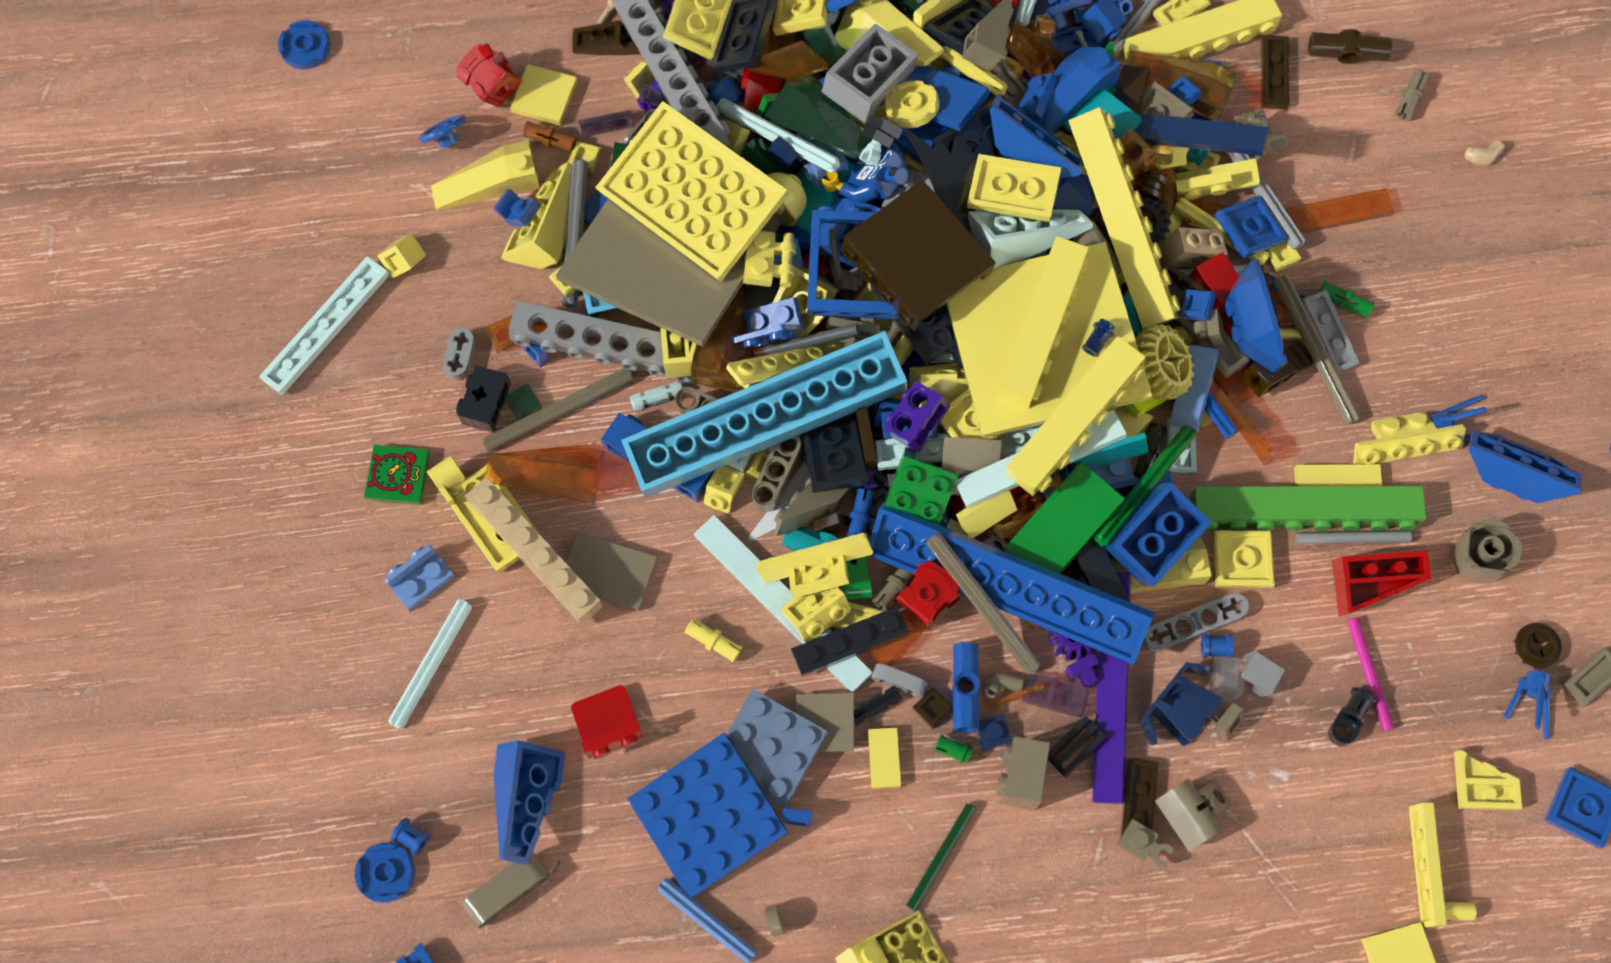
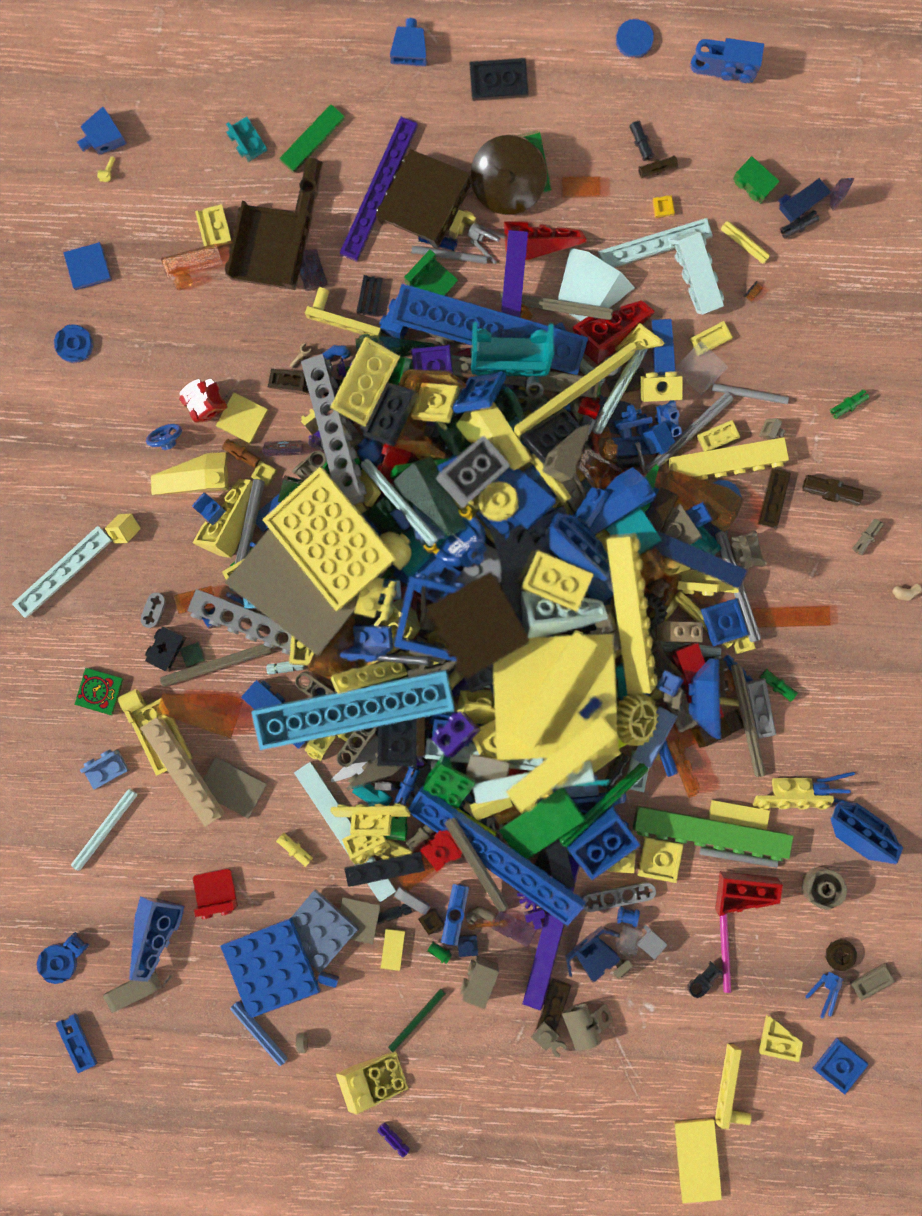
camera: 10 degrees right, 15 degrees up
(880, 133) = (470, 522): black piece -> none
(1080, 726) = (505, 975): black tile -> none

